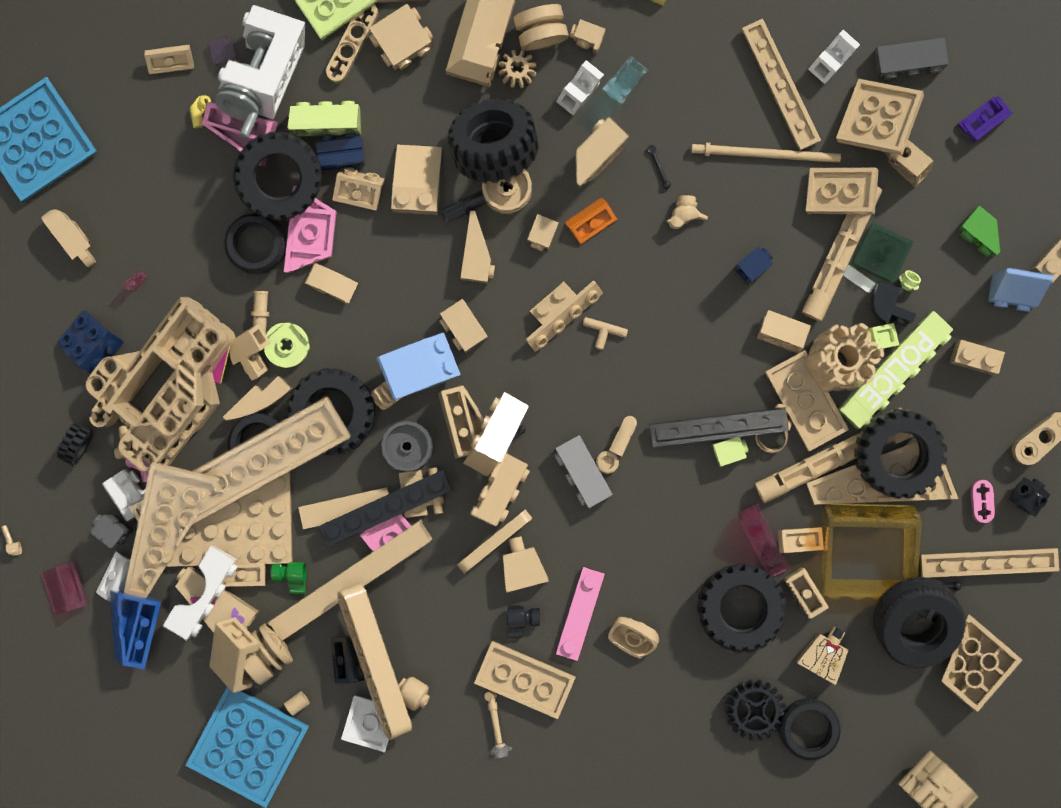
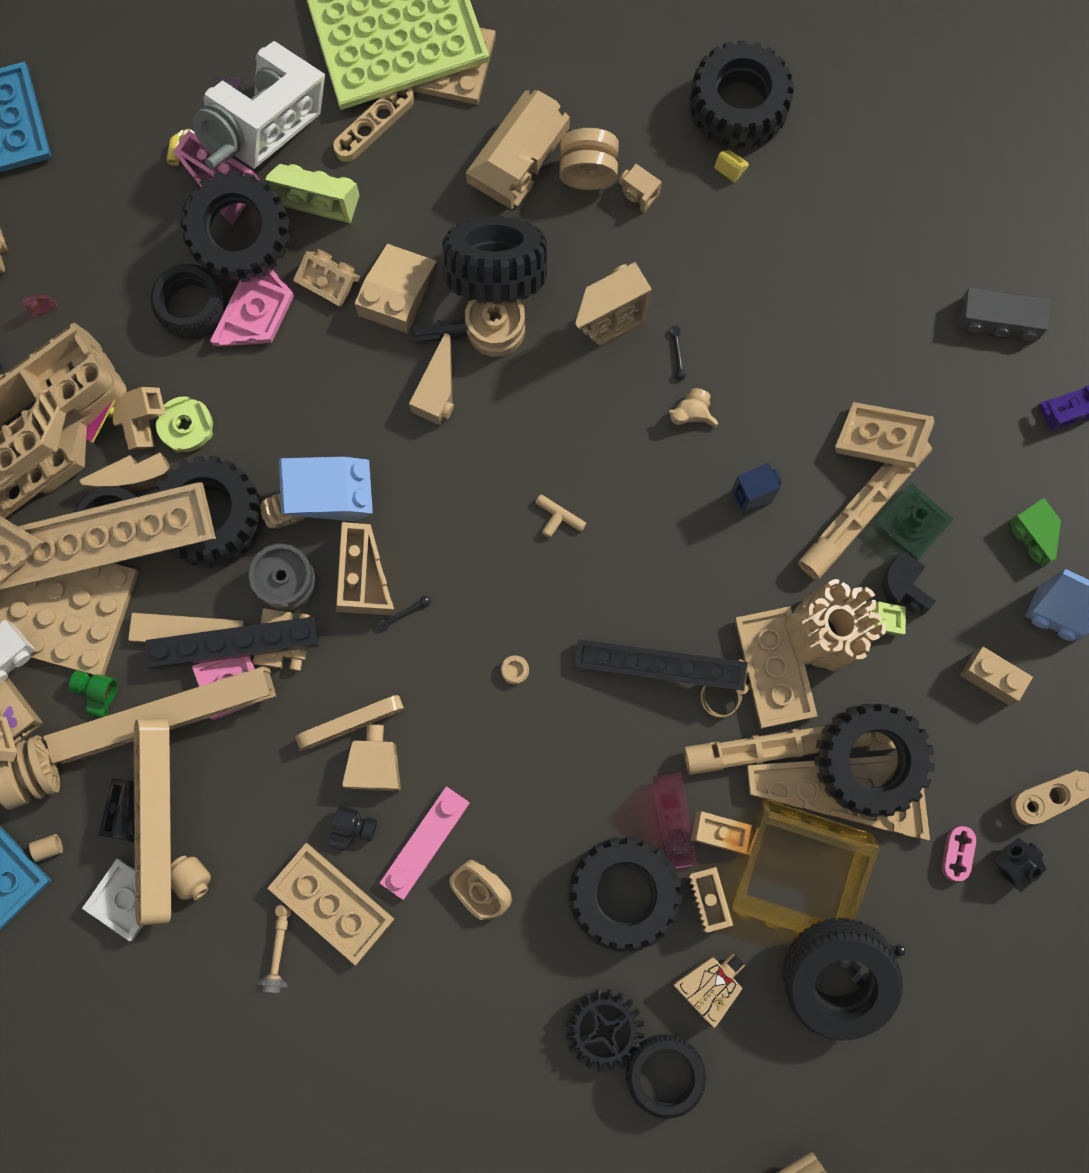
camera: 10 degrees right, 10 degrees down
(169, 59) = (165, 82): tan plate -> none
(248, 575) = (41, 674): tan plate -> none
(260, 309) = (169, 375): tan pin -> none
(331, 282) = (260, 370): tan slope -> none
(340, 152) = (319, 231): dark blue brick -> none
(401, 37) = (429, 128): tan brick -> none
(463, 325) = (395, 461): tan brick -> none
(496, 434) = (388, 588): wedge -> none
(501, 490) = (376, 660): tan wedge -> none
(517, 61) = (548, 200): tan gear -> none
(542, 233) = (520, 384): tan brick -> none
(559, 310) = (512, 478): tan bracket -> none
(580, 88) = (614, 240): white brick -> none
(582, 472) = (481, 671): light grey brick -> none
(591, 220) = (581, 389): orange slope -> none
(623, 435) = (544, 643): tan bar -> none
(625, 80) = (668, 245): clear light blue brick -> none
(708, 149) = (740, 348): tan bar -> none
(730, 451) = (666, 699): yellowish green brick -> none
(781, 84) = (845, 302): tan plate -> none
(783, 331) = (770, 578): tan hinge -> none
(834, 56) = (915, 287): white brick -> none
(859, 279) = (876, 545): white sticker -> none
(880, 116) = (952, 364): tan plate -> none
(895, 369) = (893, 661): yellowish green brick -> none
(909, 280) = (937, 563): yellowish green plate -> none
(914, 166) = (973, 425): tan torso -> none
(978, 665) = (902, 1060): tan wedge -> none
(989, 562) = (950, 933): tan plate -> none

